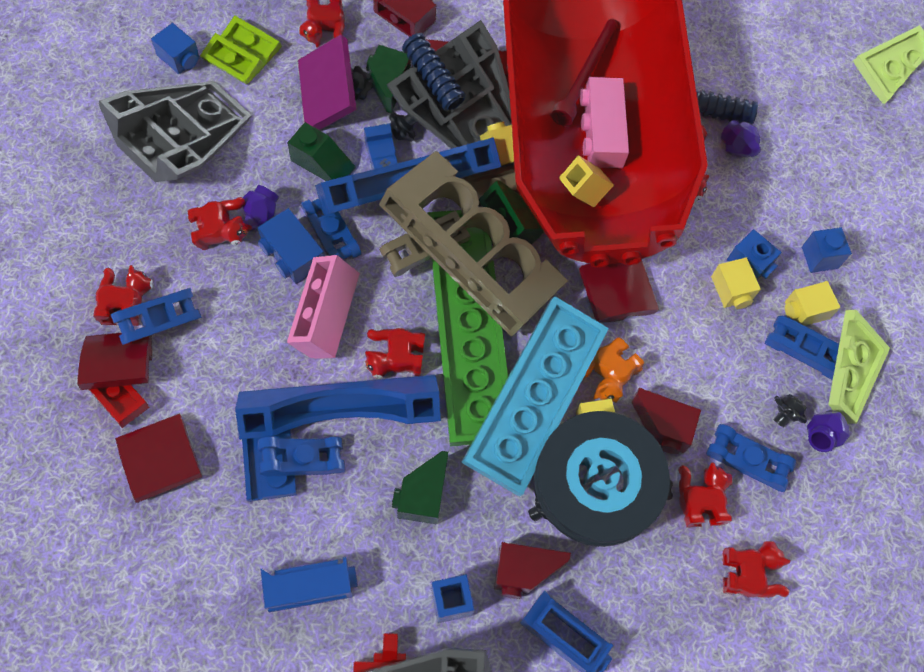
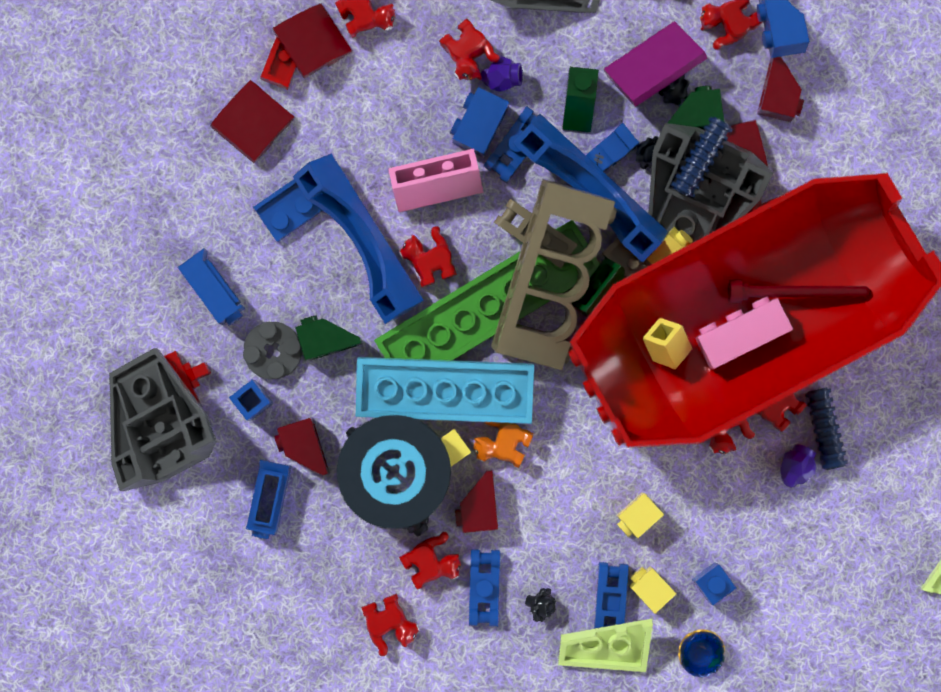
camera: 70 degrees right, 20 degrees up
(156, 315) = (360, 52): blue plate -> none
(300, 456) = (304, 230): blue plate -> none
(401, 573) = (255, 352): none -> dark grey plate
(618, 291) = (578, 419): dark red slope -> none
(759, 253) = (675, 523): blue brick -> none
(827, 431) = (536, 642): dark purple rock -> none
(895, 290) = (701, 661): none -> clear blue hair

